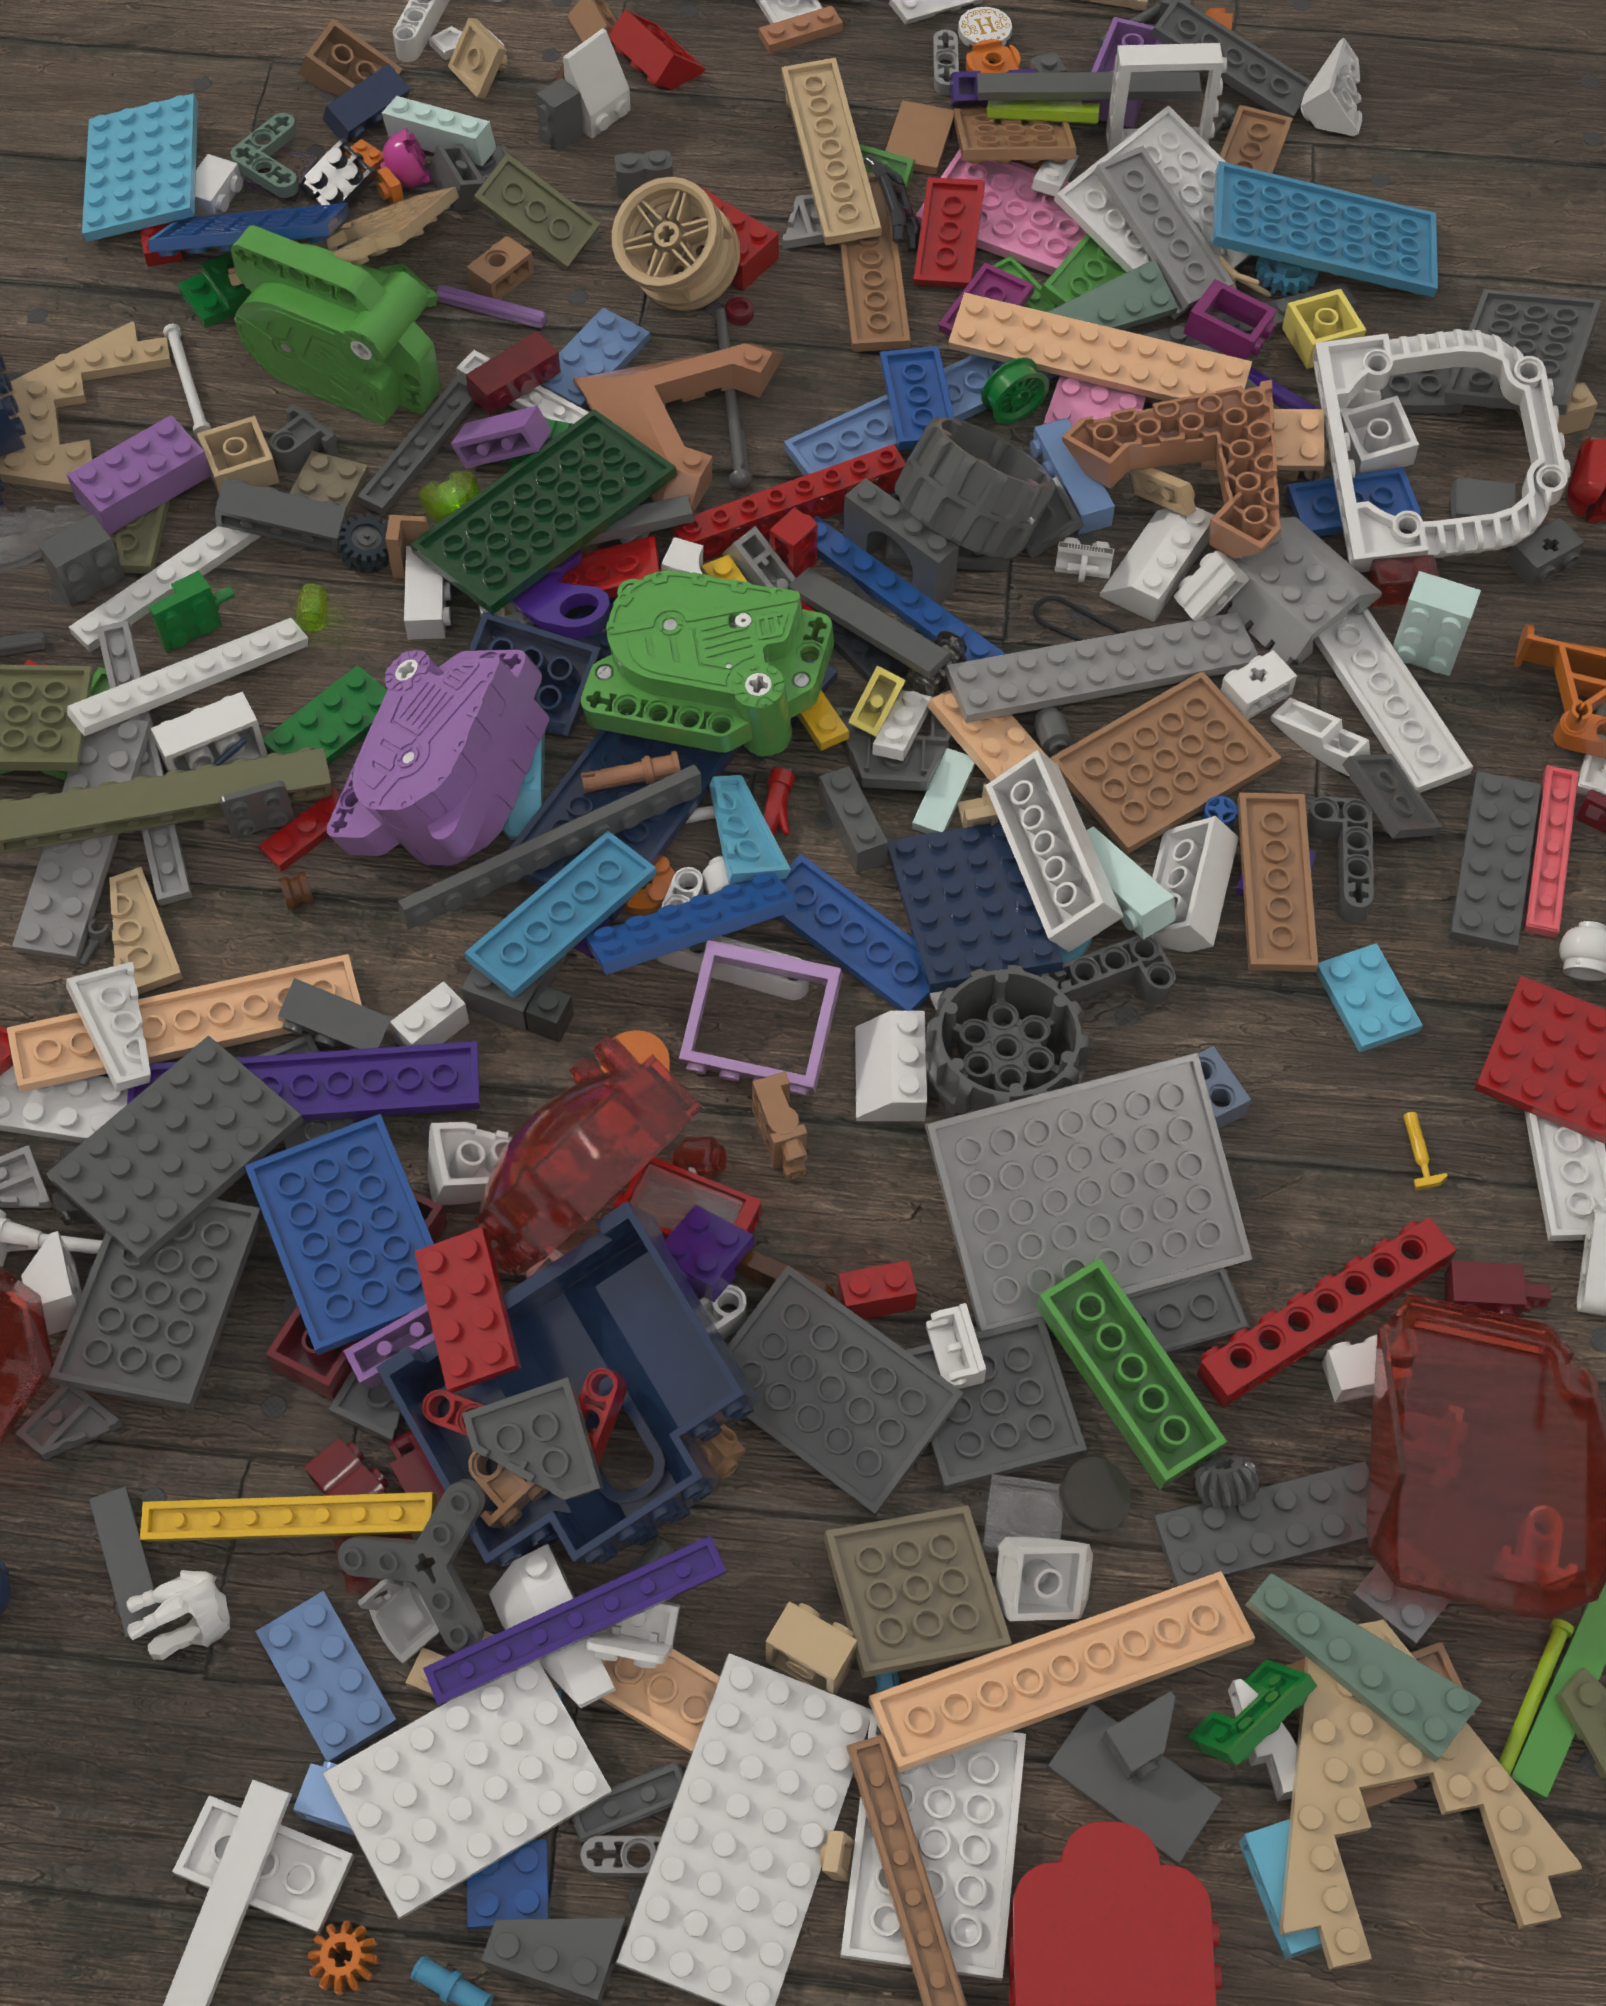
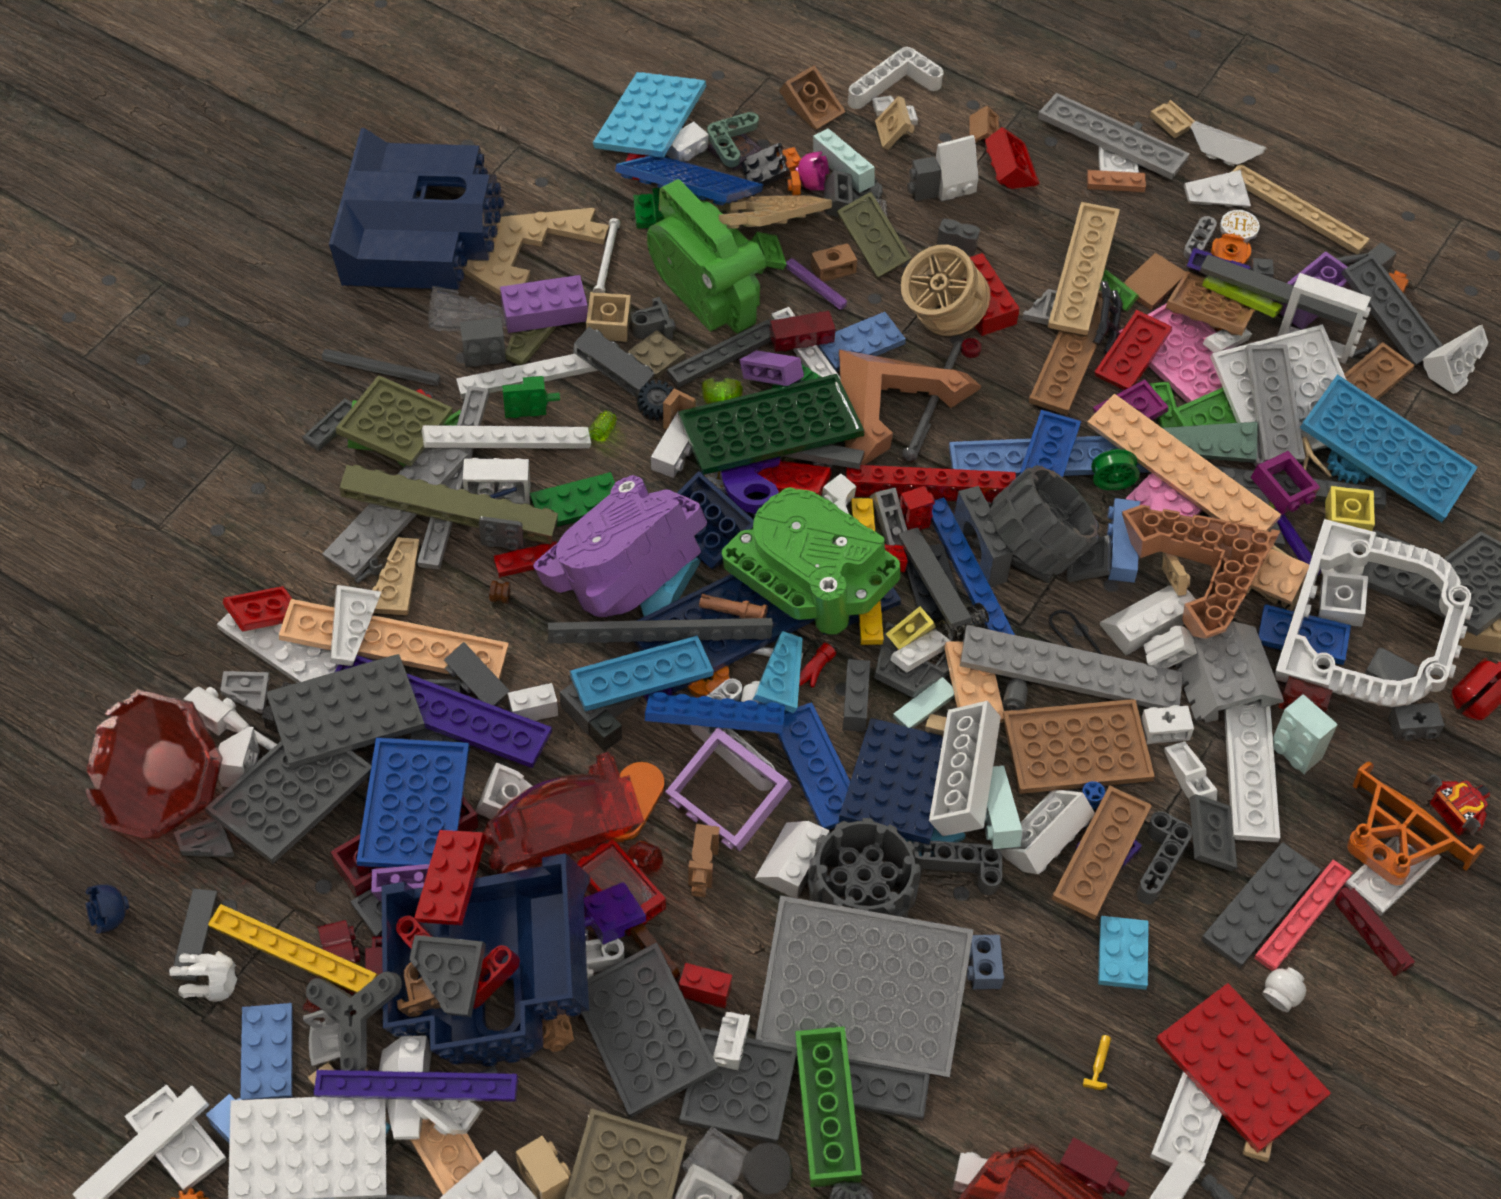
camera: 25 degrees right, 5 degrees down
(364, 103) = (804, 126): dark blue brick -> none
(1084, 559) = (1099, 596): white hips -> none
(1230, 1383) = (967, 1139): red brick -> none

